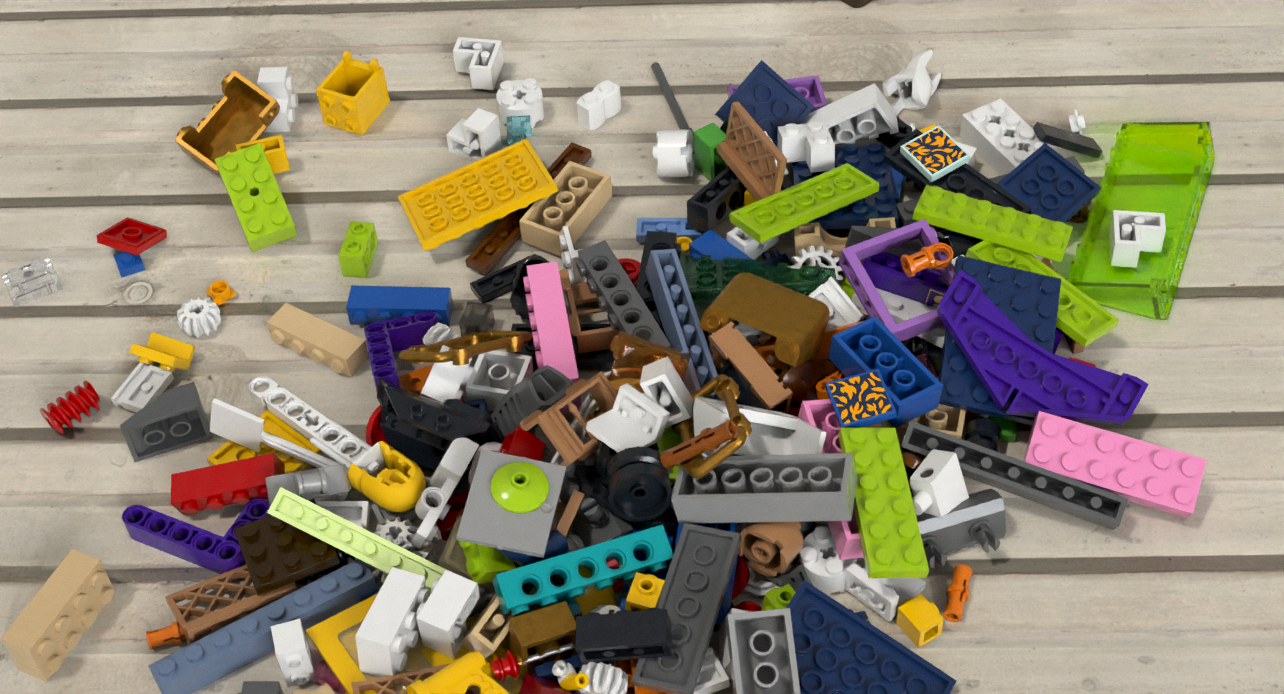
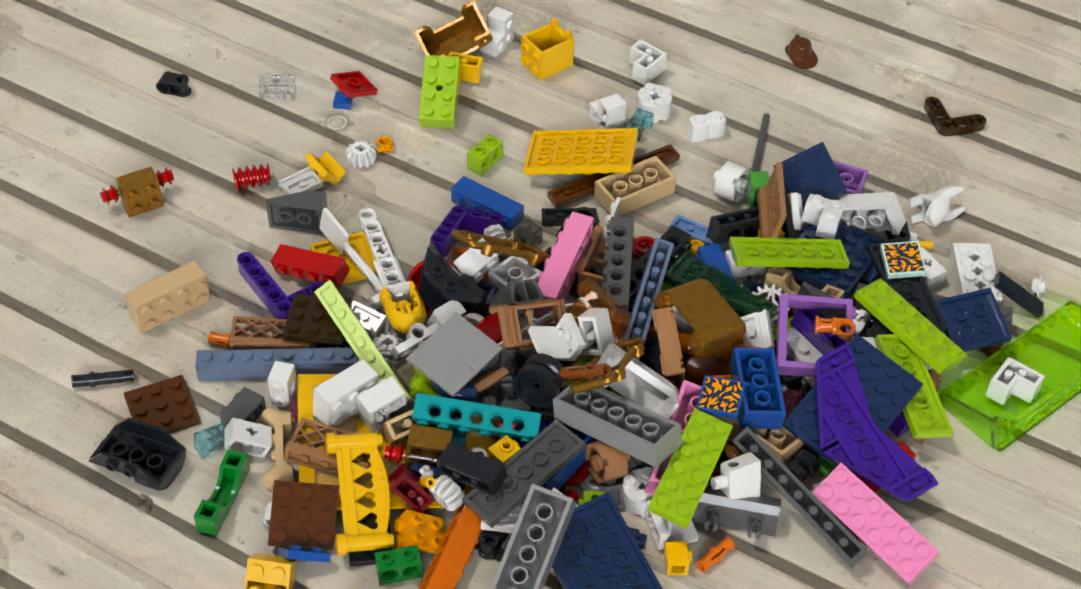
camera: 25 degrees right, 0 degrees up
(310, 483) = (355, 287): light grey piece -> none
(318, 339) = (421, 200): tan brick -> none
(515, 496) = (464, 353): lime dish -> none

